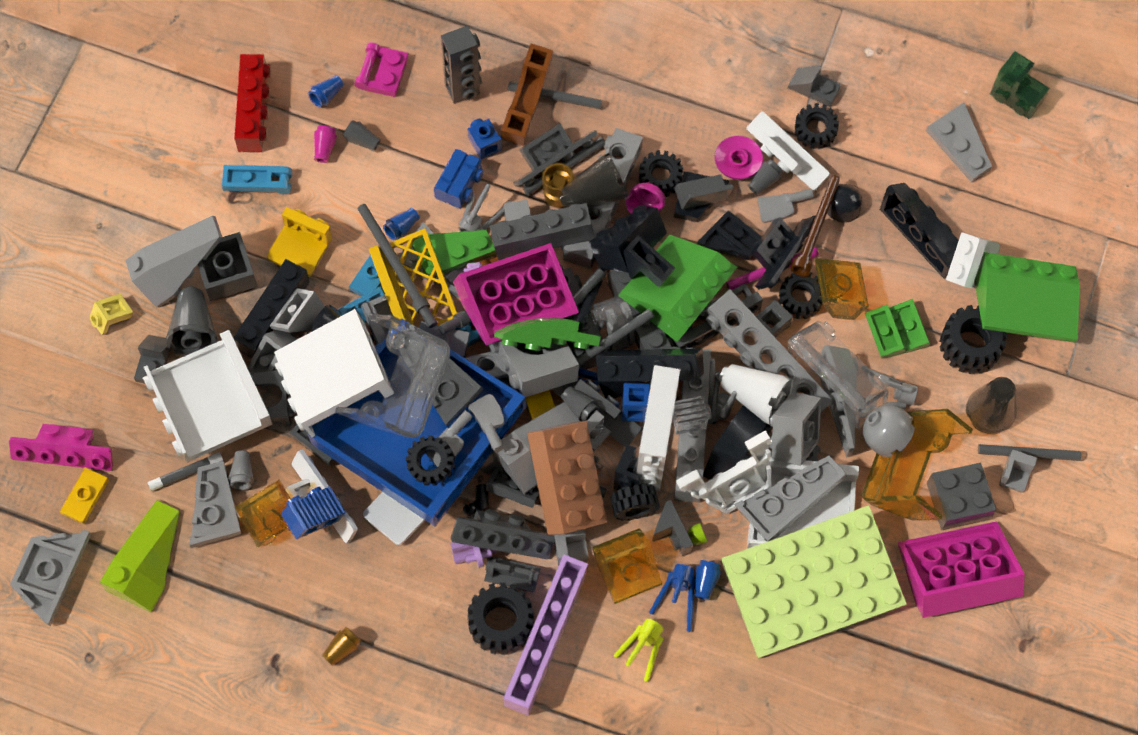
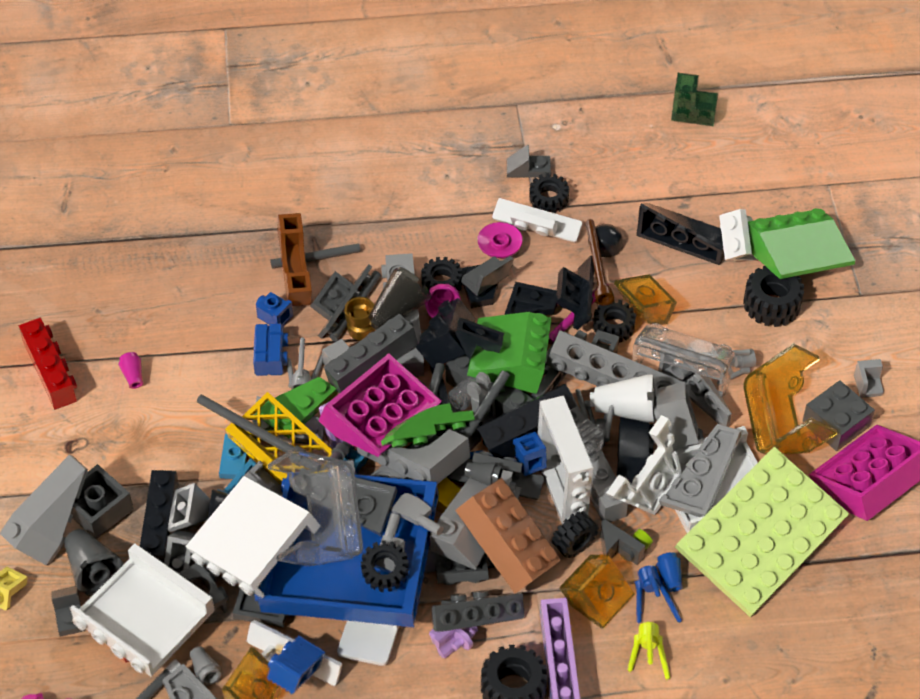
camera: 25 degrees left, 15 degrees down
(256, 178) = (85, 422): dark azure plate -> none
(301, 240) = (153, 450): yellow bracket -> none
(324, 92) = (109, 330): blue cone -> none
(361, 135) = (162, 351): dark grey cone -> none
(389, 71) = (158, 291): dark pink plate -> none
(399, 225) = (239, 402): blue cone -> none
(461, 64) = (226, 253): dark grey brick -> none
(481, 502) = (436, 593): black arm -> none
(513, 573) = (491, 642): dark grey hinge -> none
(572, 545) = (534, 593): light grey panel -> none
(626, 470) = (554, 511): black bracket -> none
(765, 177) = (531, 244): dark grey cone -> none
(780, 205) = (551, 265): light grey piece -> none
(888, 429) = (750, 388): light grey cylinder -> none
(897, 329) = (707, 315): bright green slope -> none
(961, 142) = (669, 160): light grey wing -> none
(993, 406) = (822, 333): clear smoke cone -> none
(1035, 452) = (885, 356): dark grey bar -> none

